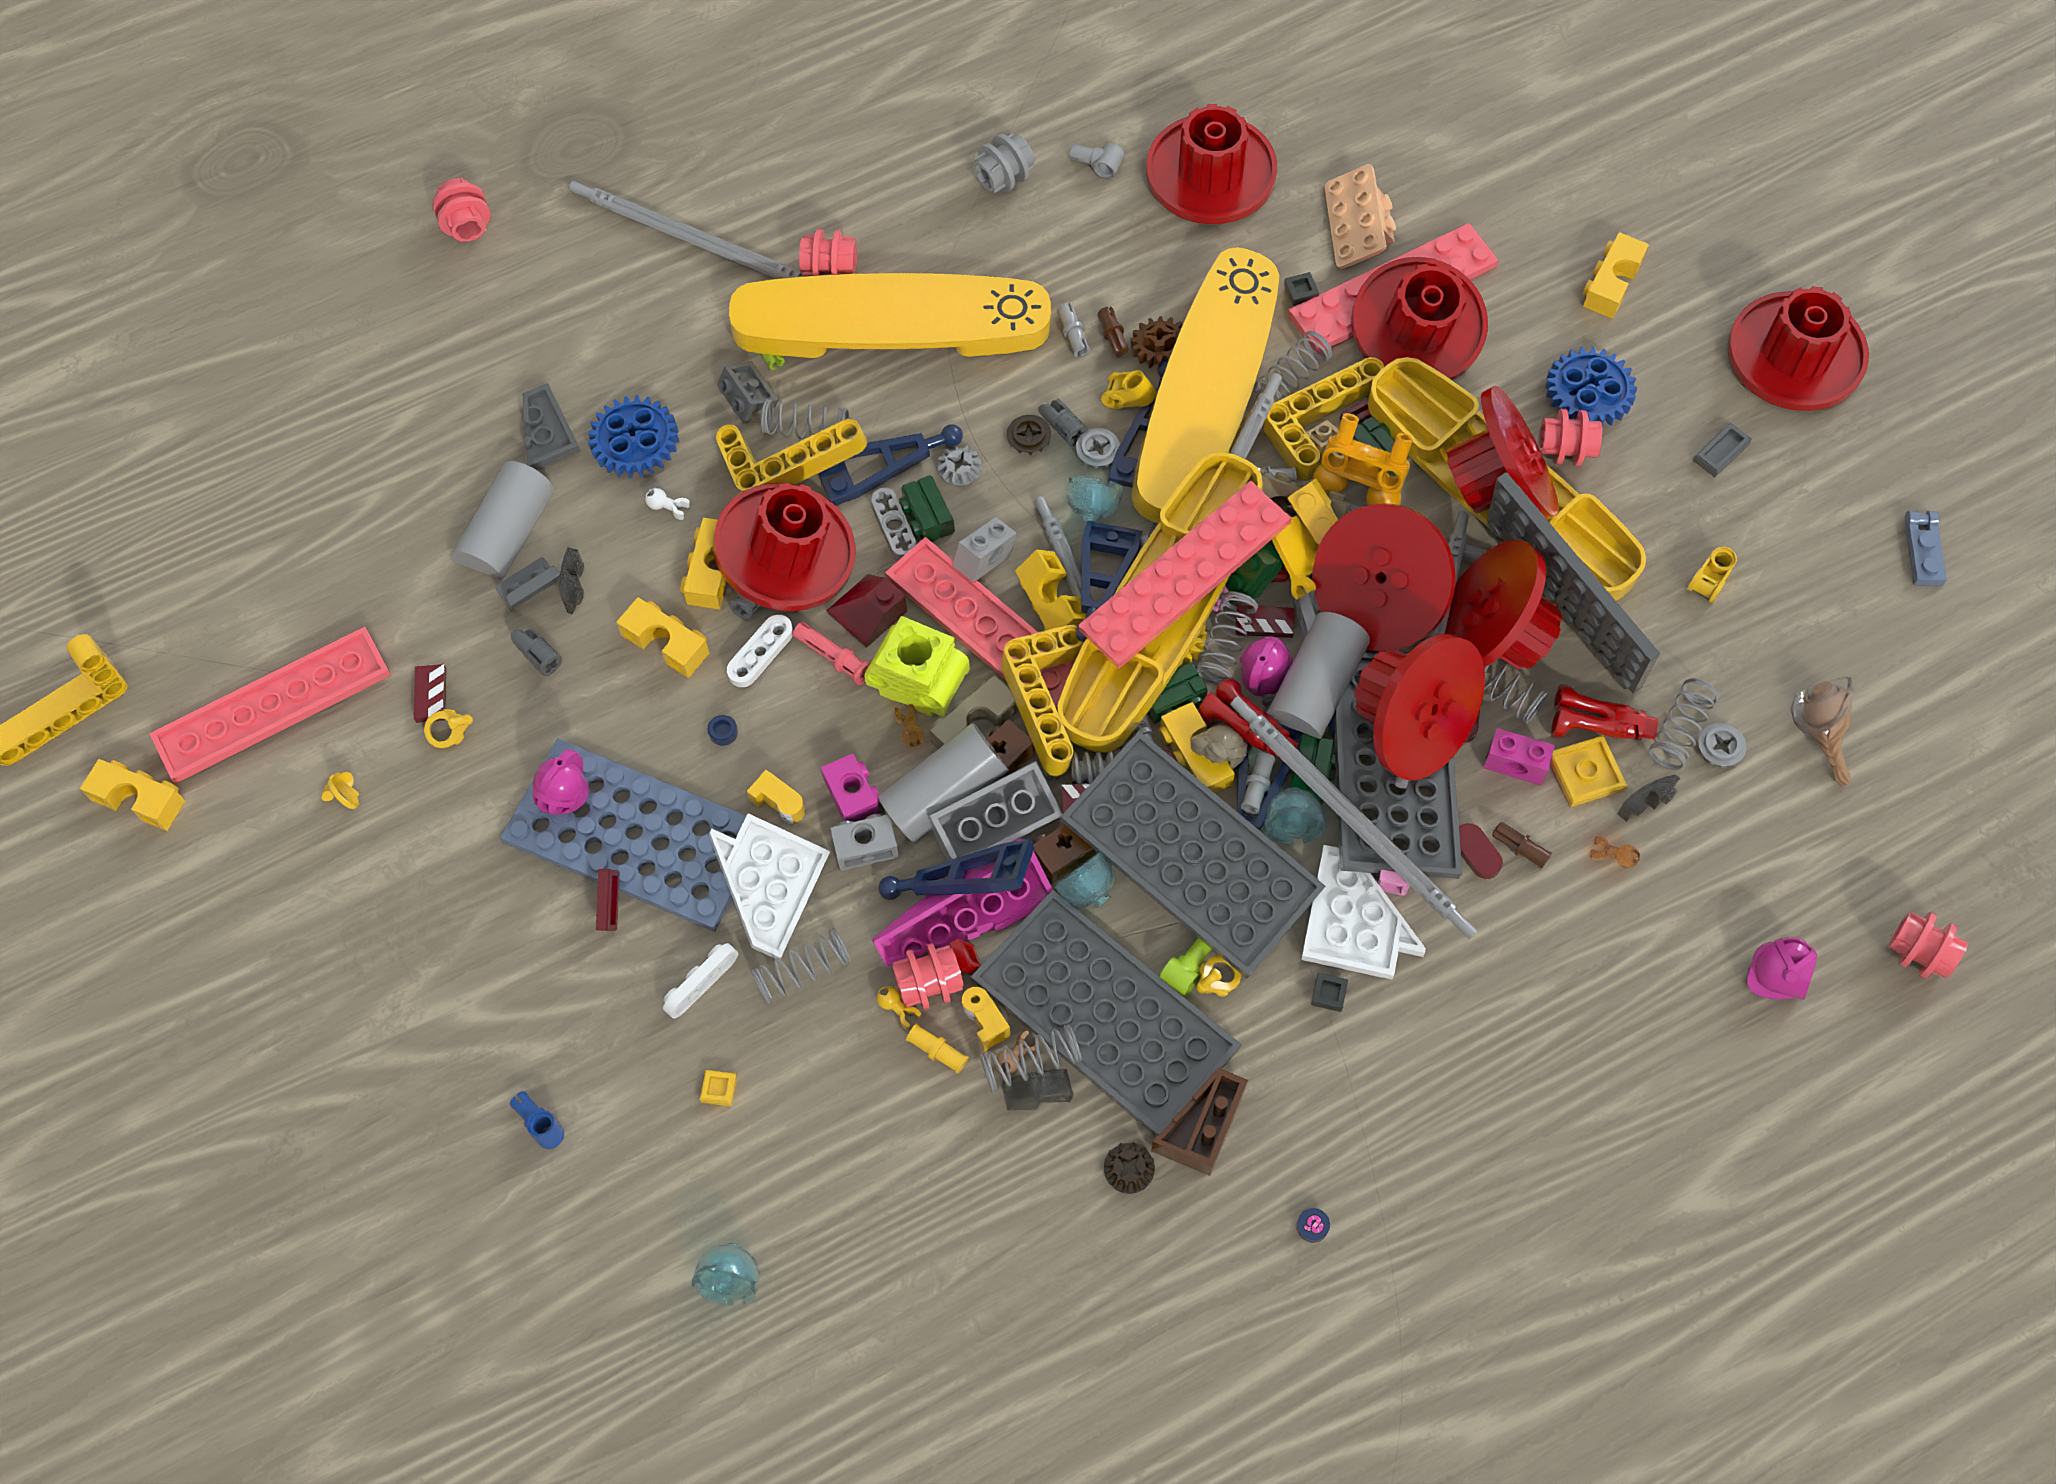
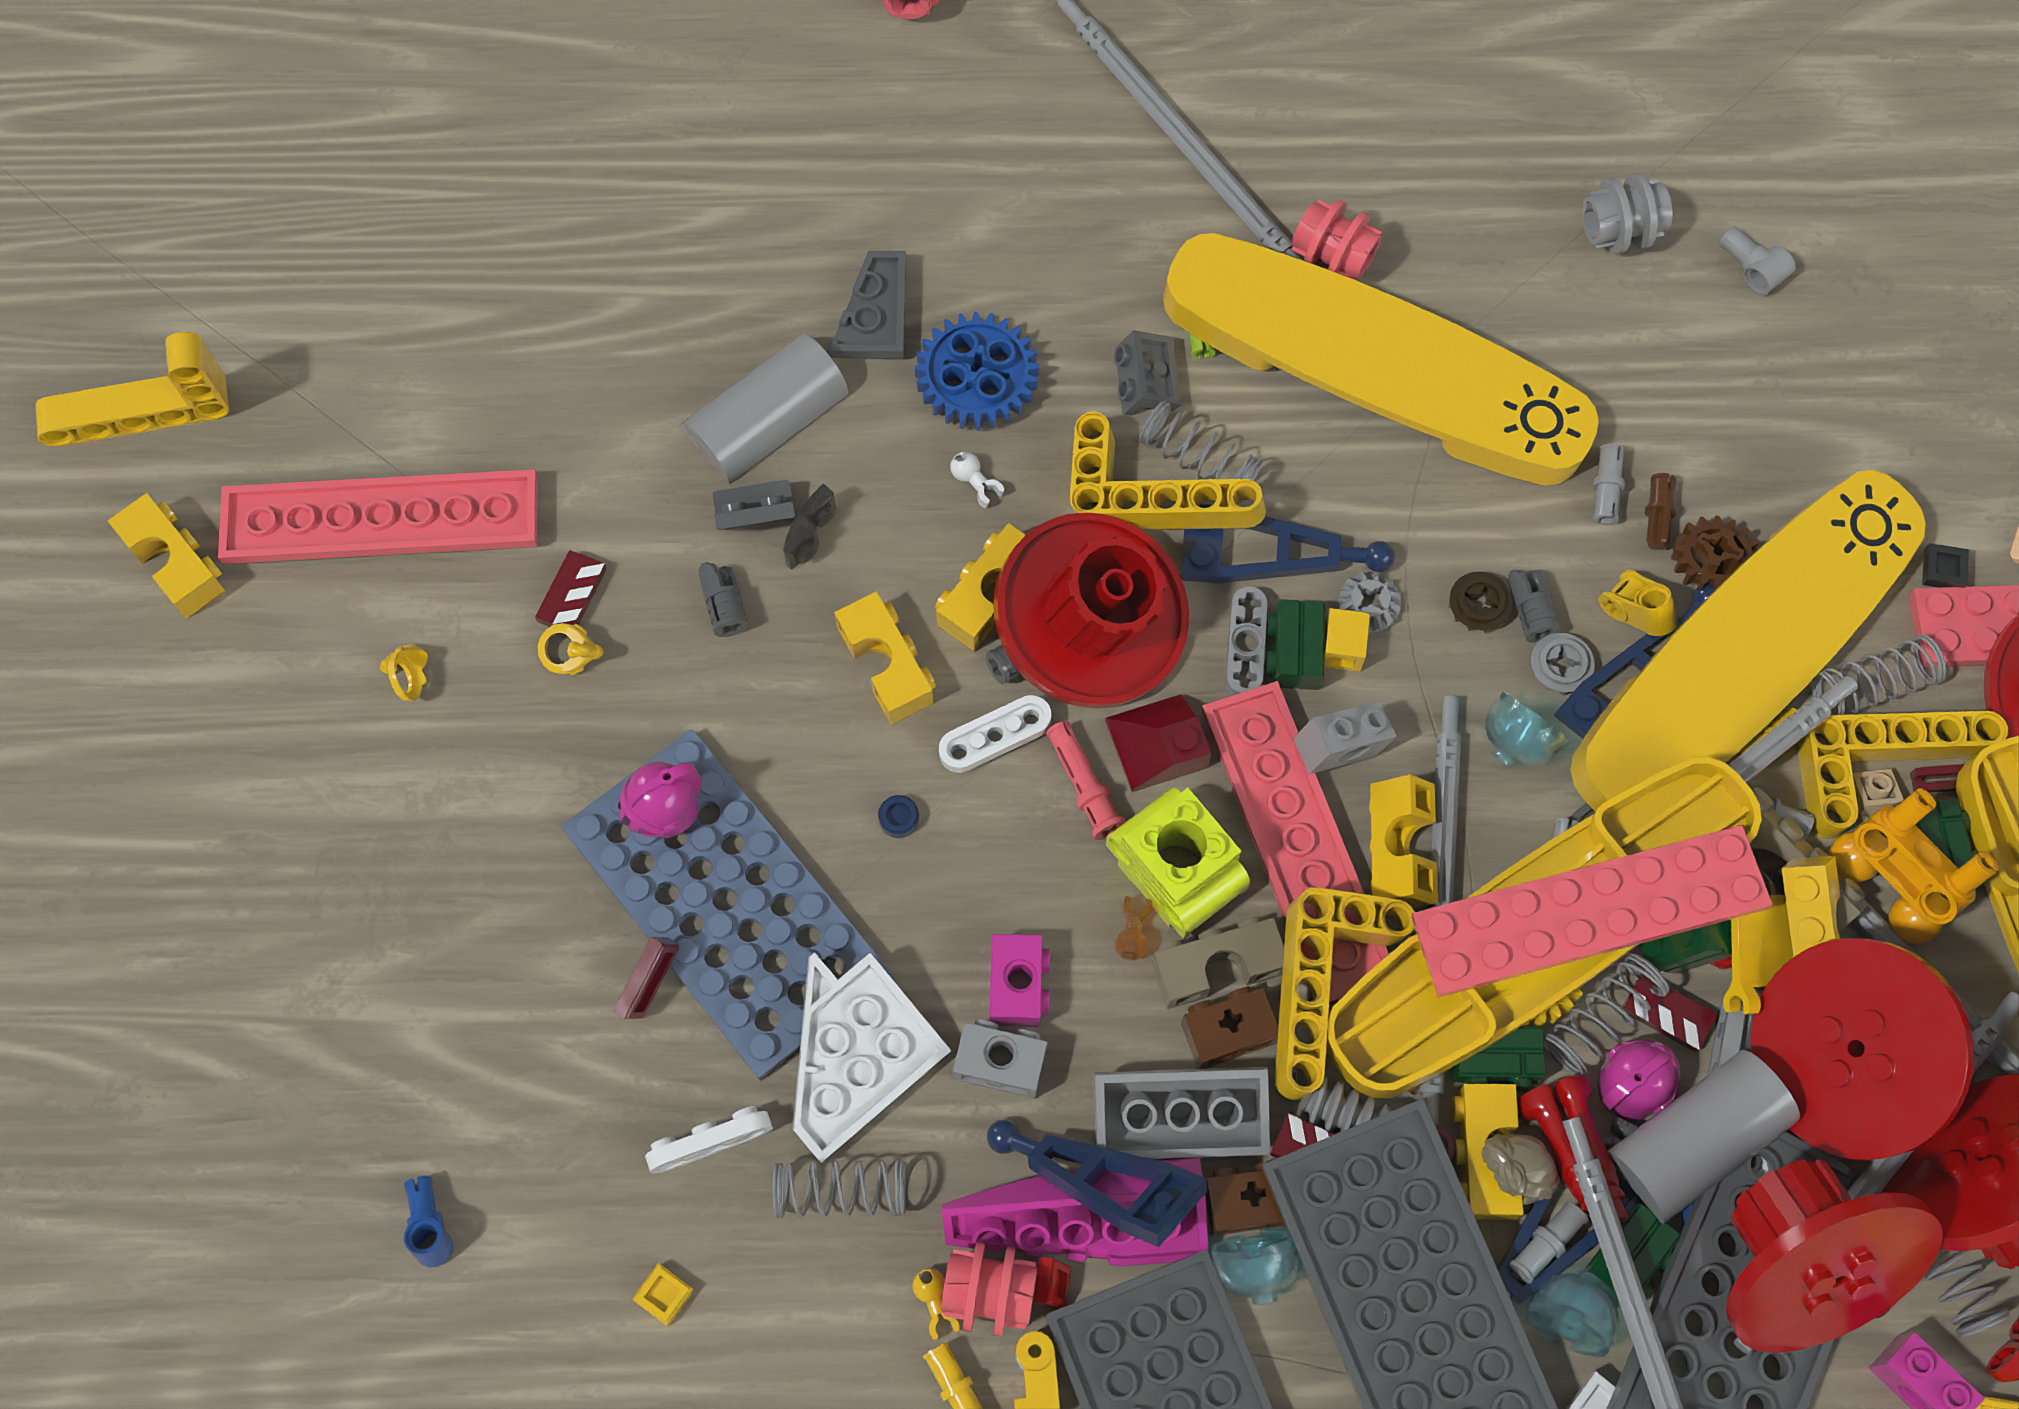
camera: 25 degrees right, 5 degrees up
(778, 796) = (924, 943): yellow leg -> none
(943, 778) = (1135, 1031): light grey brick -> none
(956, 492) = (1346, 639): none -> yellow panel
(1110, 540) = (1518, 802): dark blue plate -> none
(1211, 166) = (1904, 341): red piece -> none

